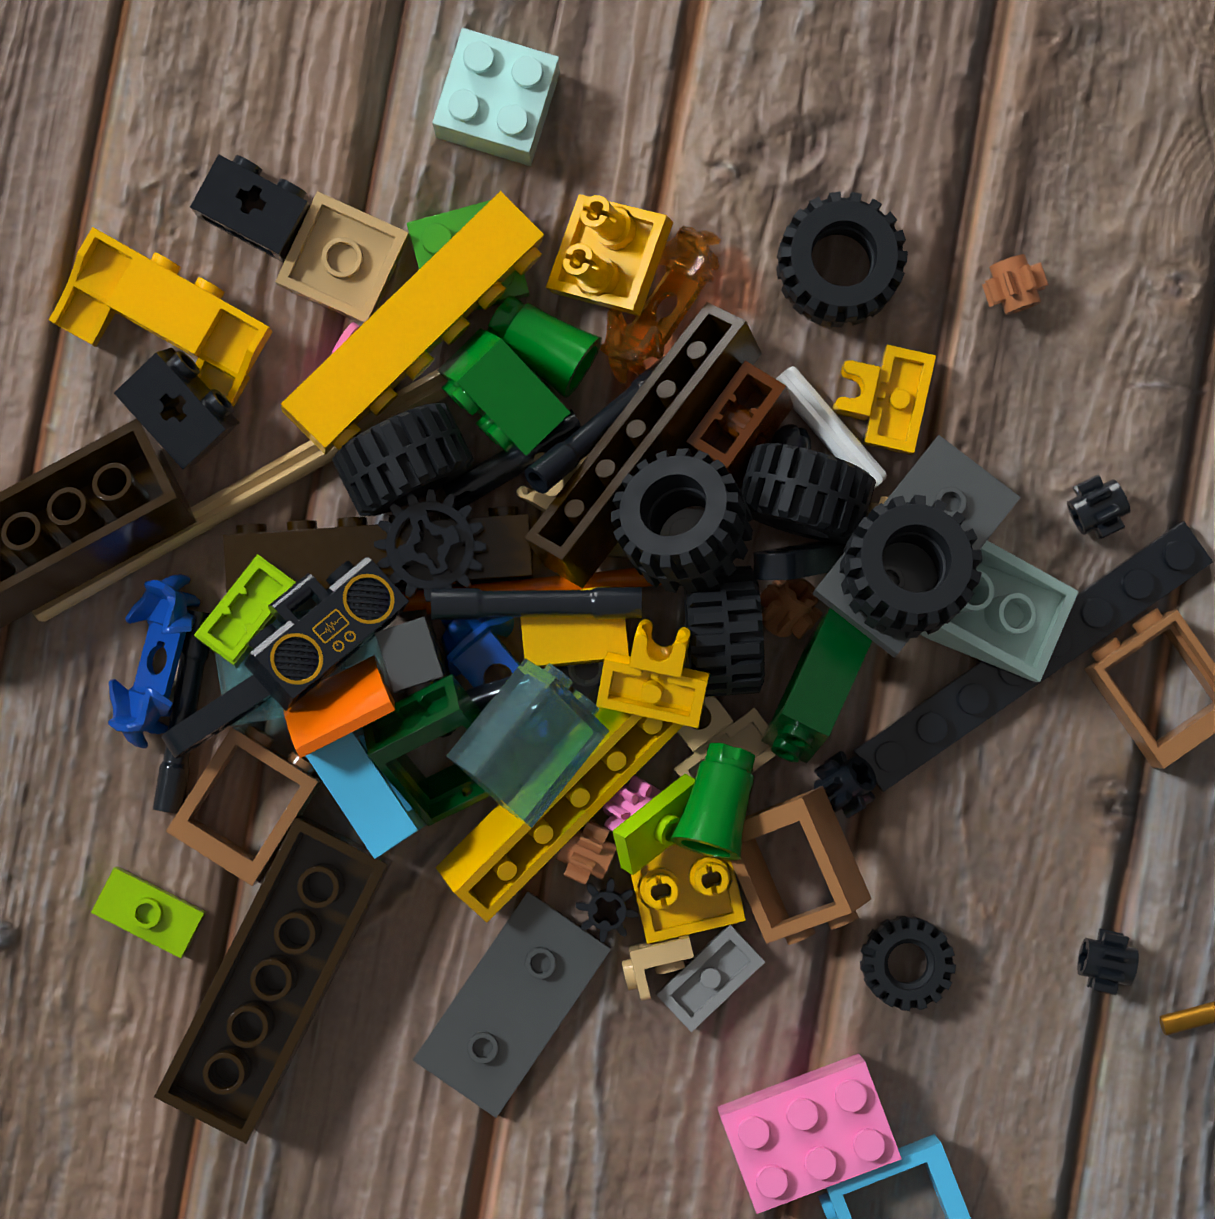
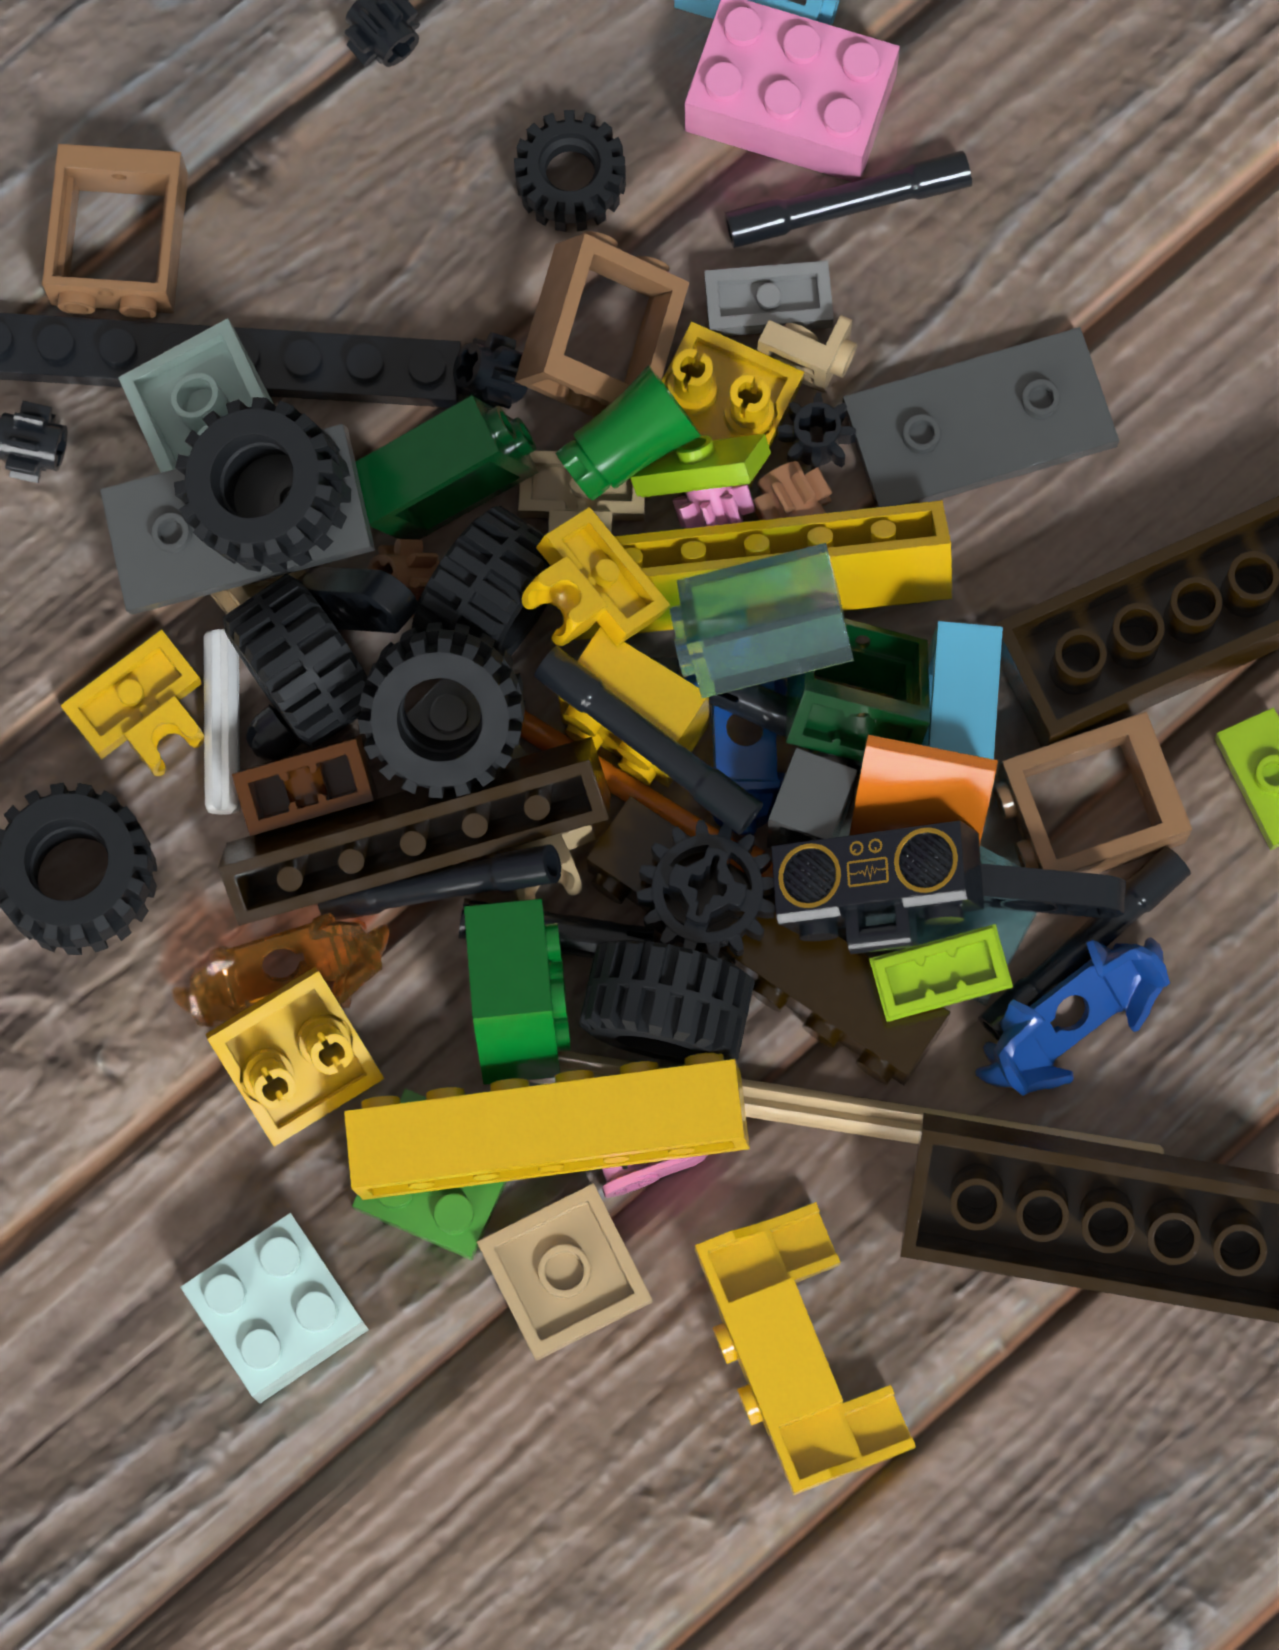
camera: 135 degrees left, 10 degrees down
(154, 394) = (867, 1210): black brick -> none
(223, 200) = (612, 1356): black brick -> none
(546, 344) = (432, 1019): green plant -> none
(680, 1134) = (916, 181): none -> black piece

